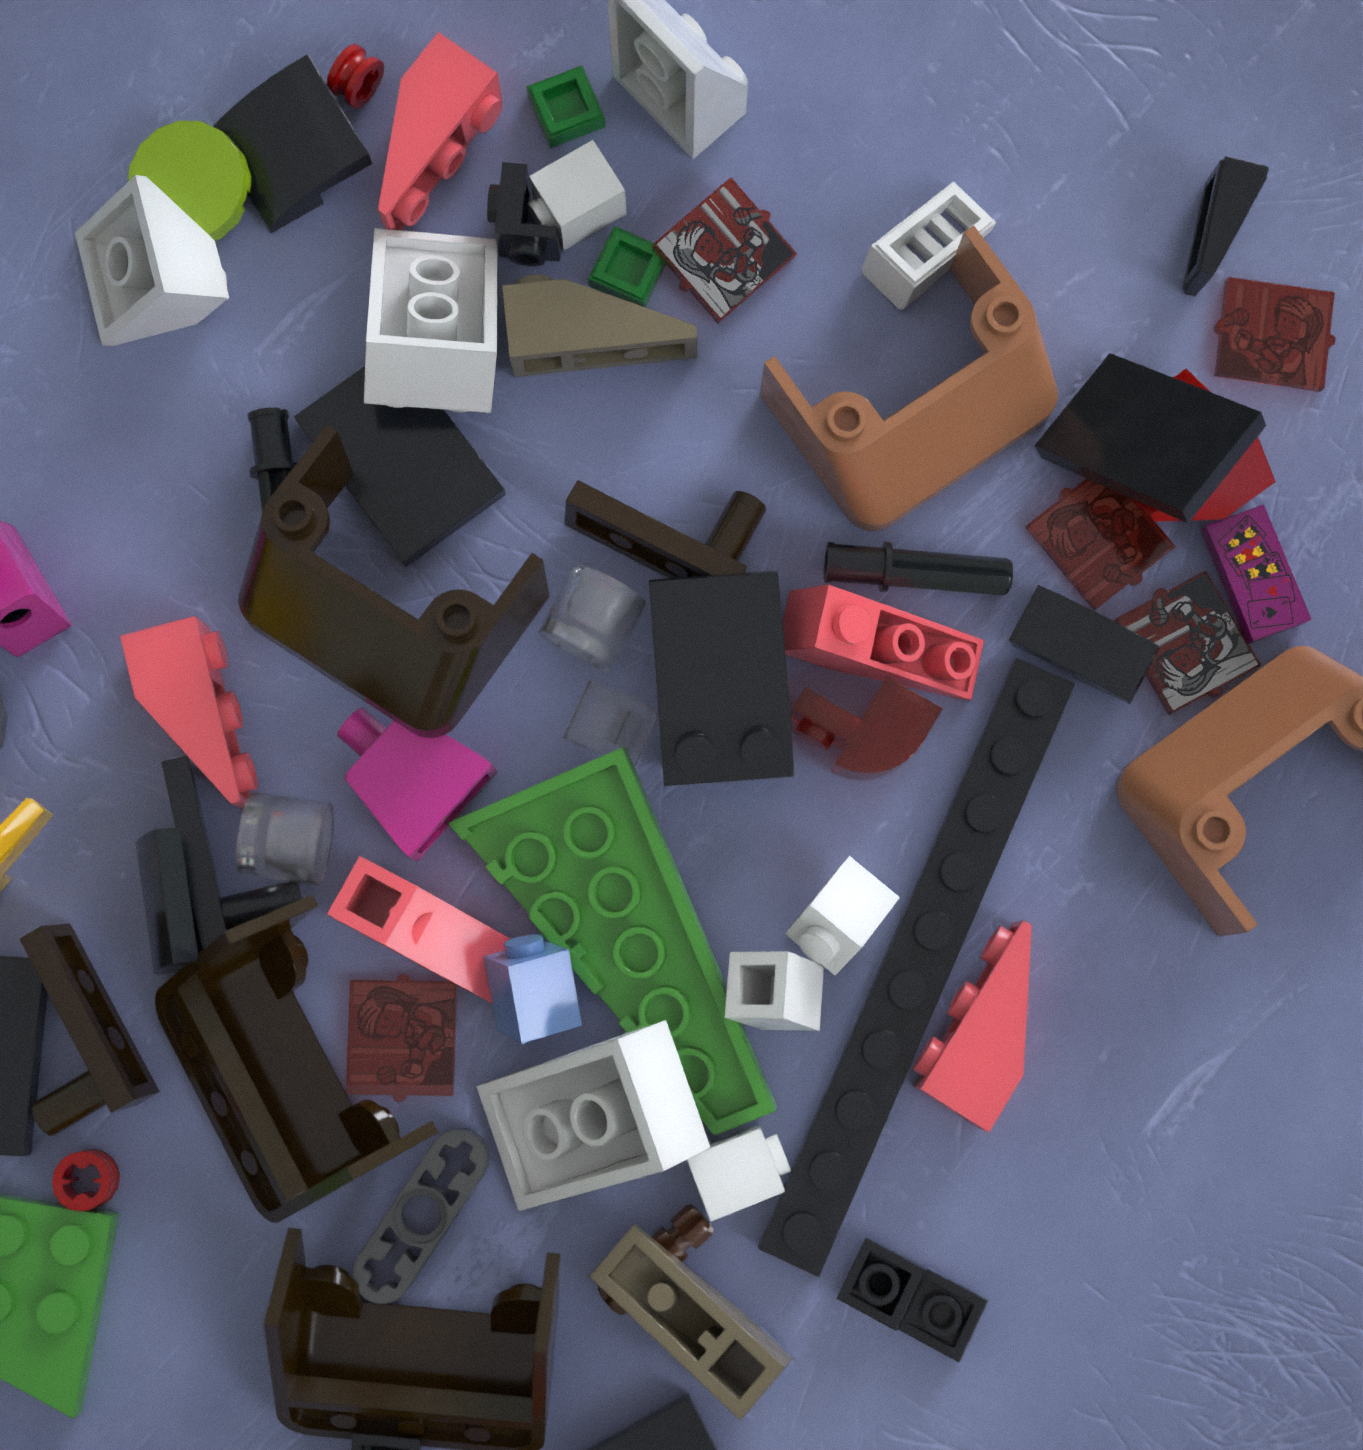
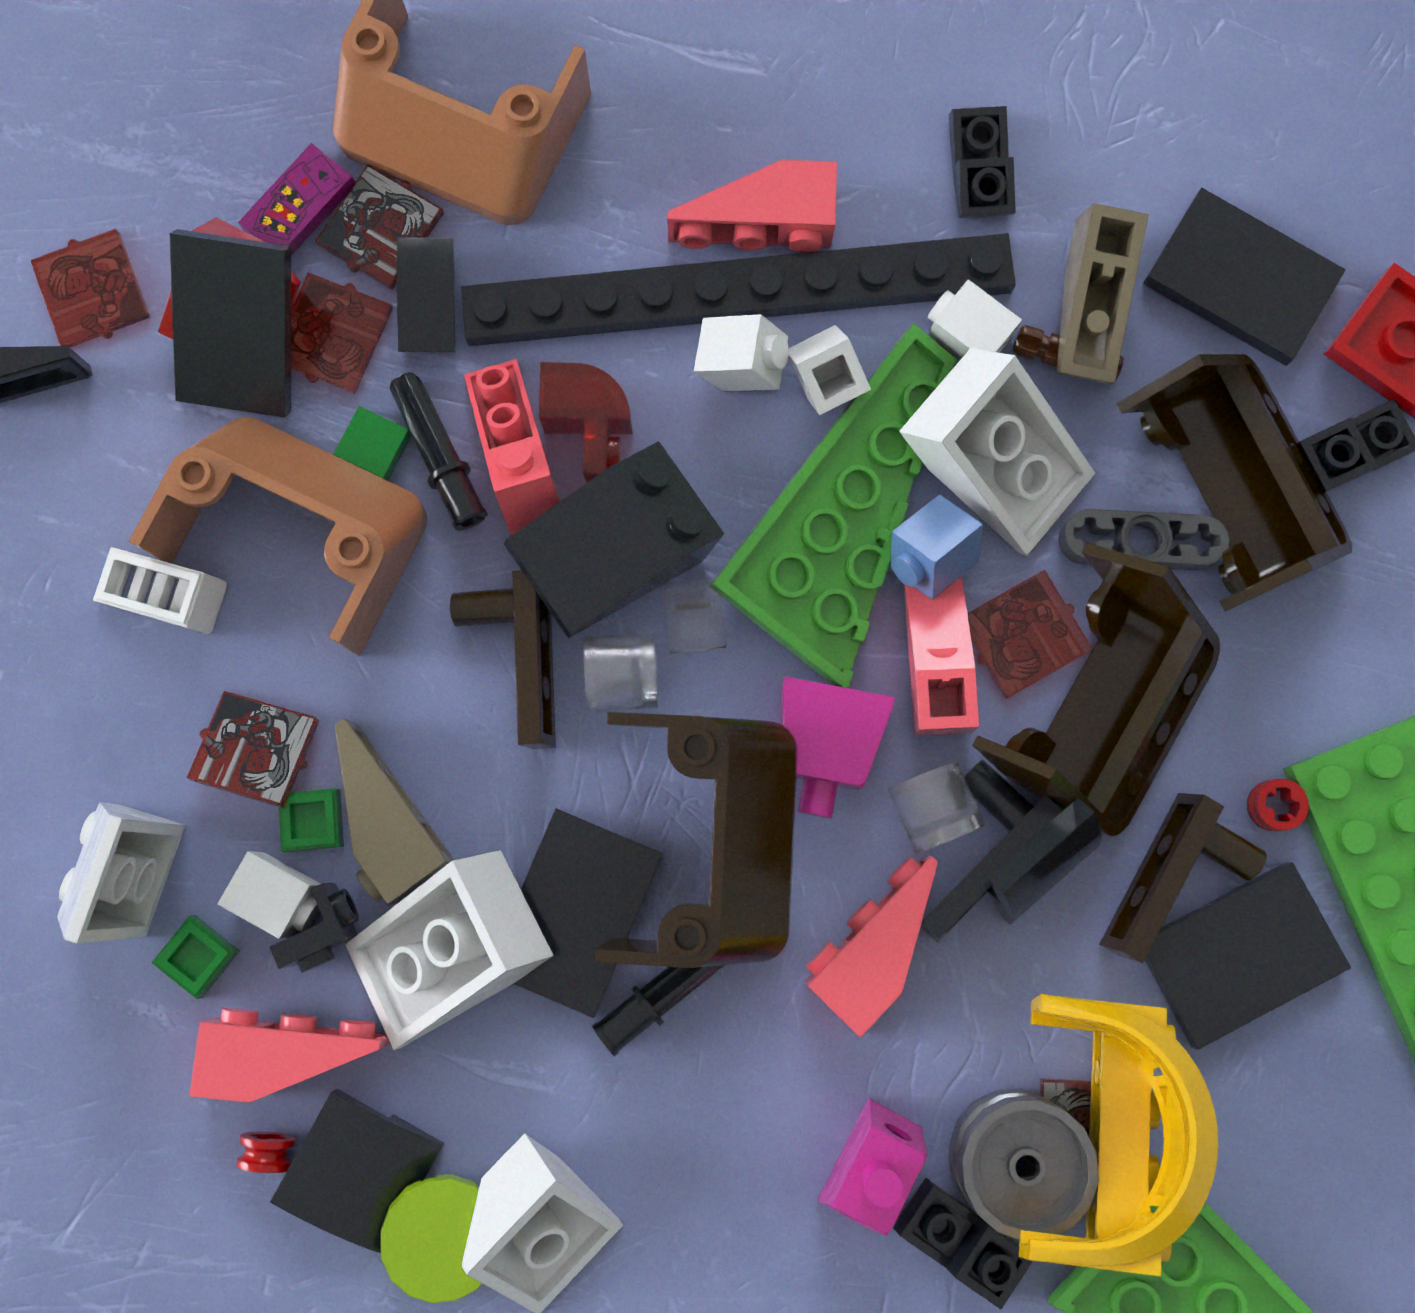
camera: 120 degrees left, 0 degrees up
(960, 513) = (373, 443): none -> green tile

